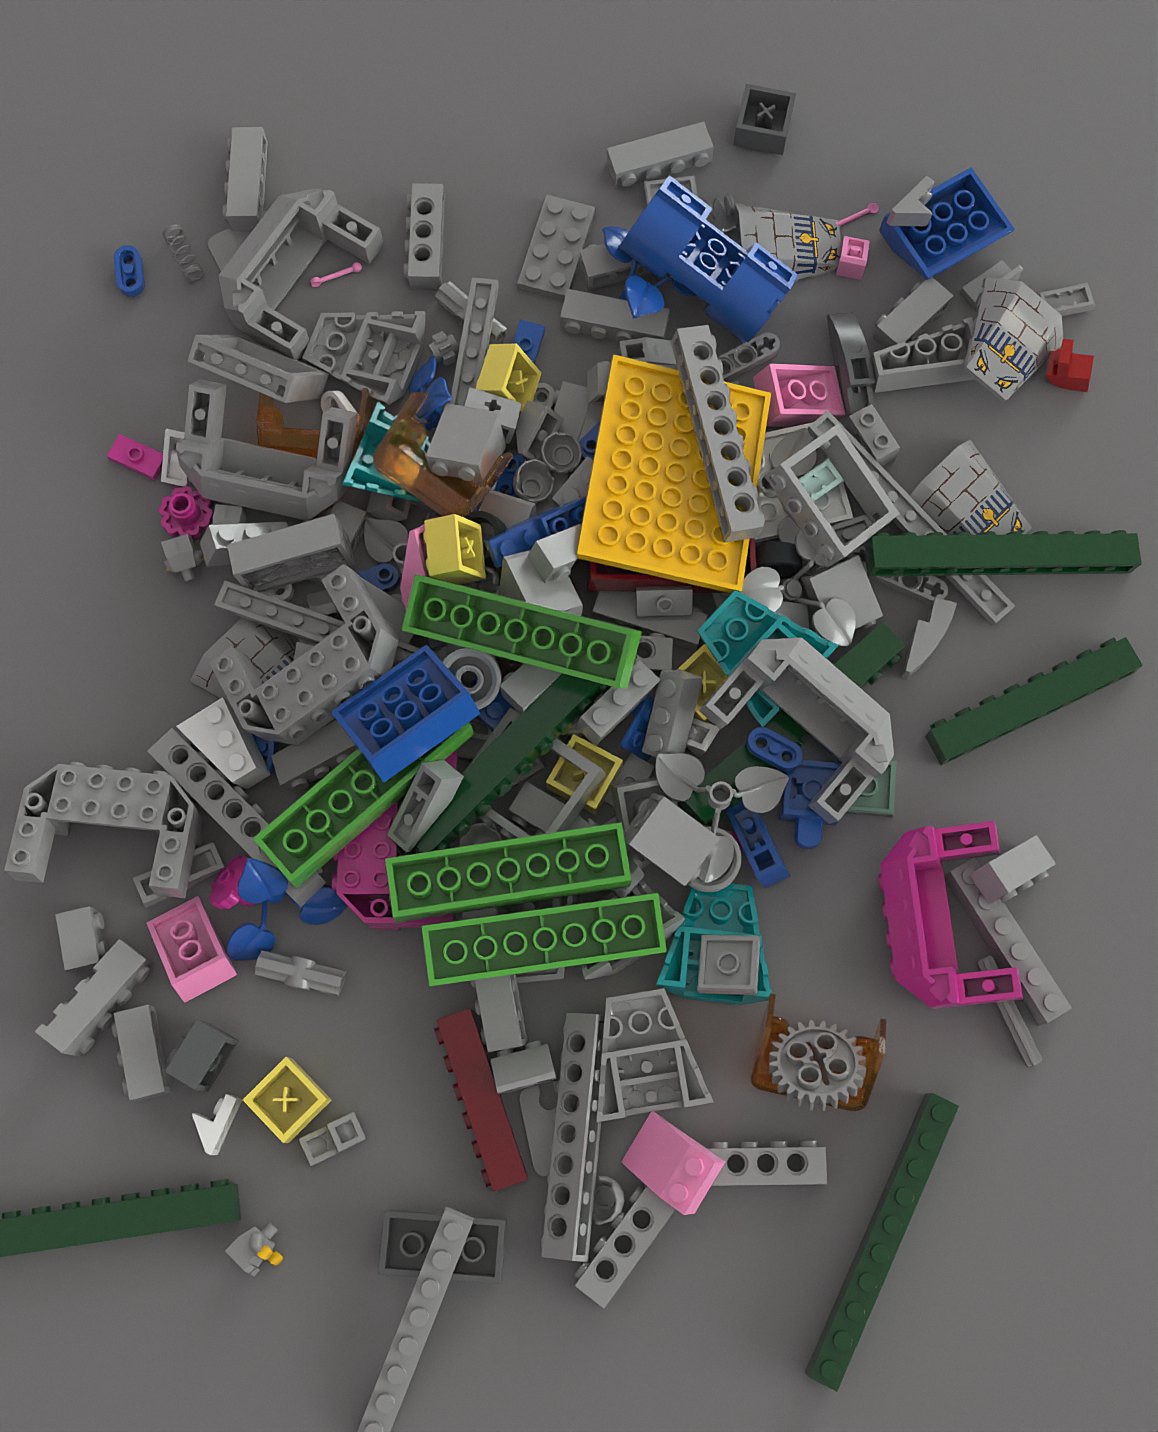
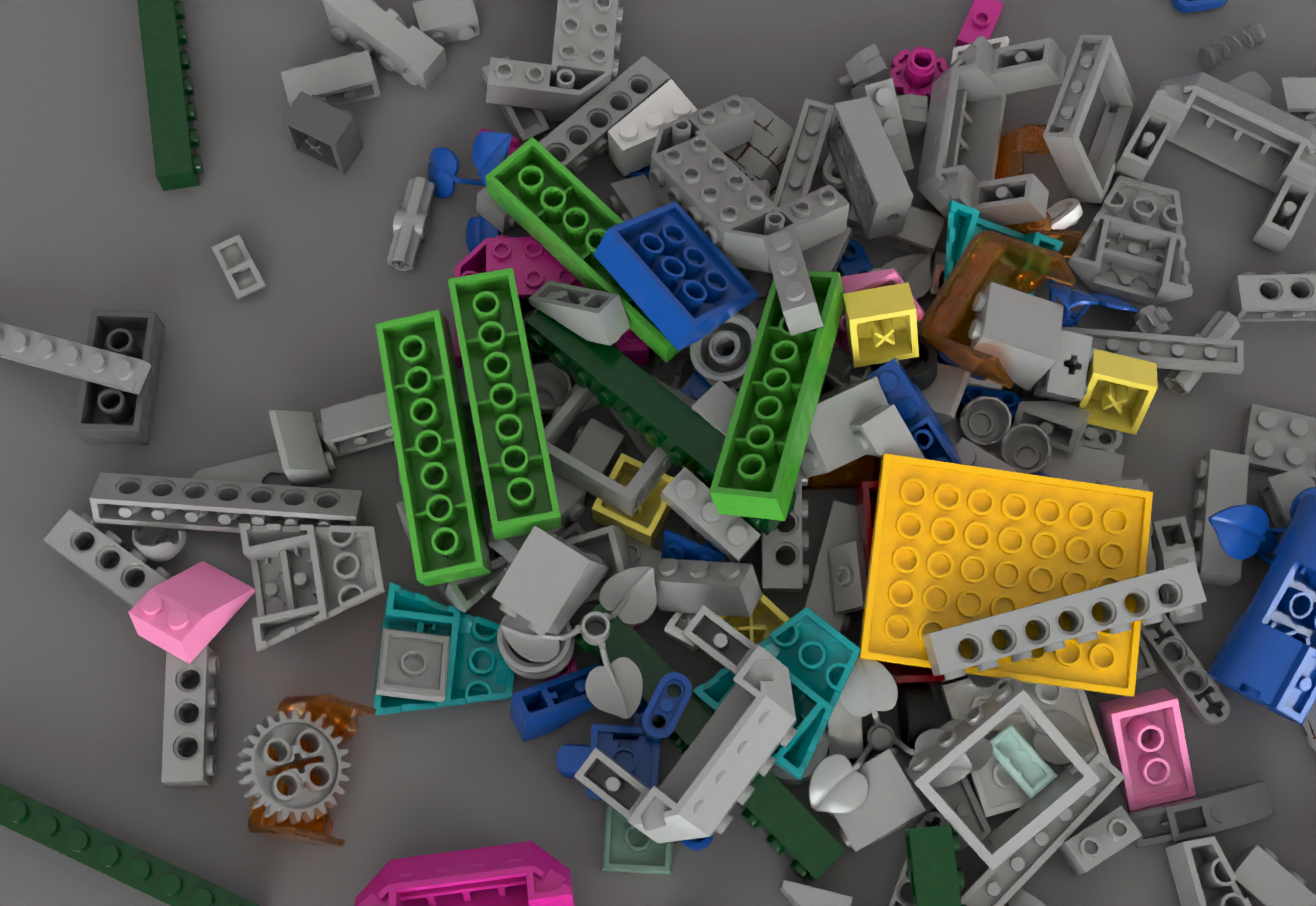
camera: 85 degrees right, 5 degrees down
(191, 949) = (435, 117): bright pink slope -> none
(214, 1131) = (254, 156): white slope -> none
(253, 1248) = (130, 198): light grey piece -> none
(287, 1100) = (277, 217): light yellow brick -> none
(316, 281) = (1219, 186): bright pink hinge -> none
(424, 611) = (792, 281): none -> light grey brick
(483, 1104) = (247, 420): dark red brick -> none
(529, 338) = (1173, 419): blue plate -> none

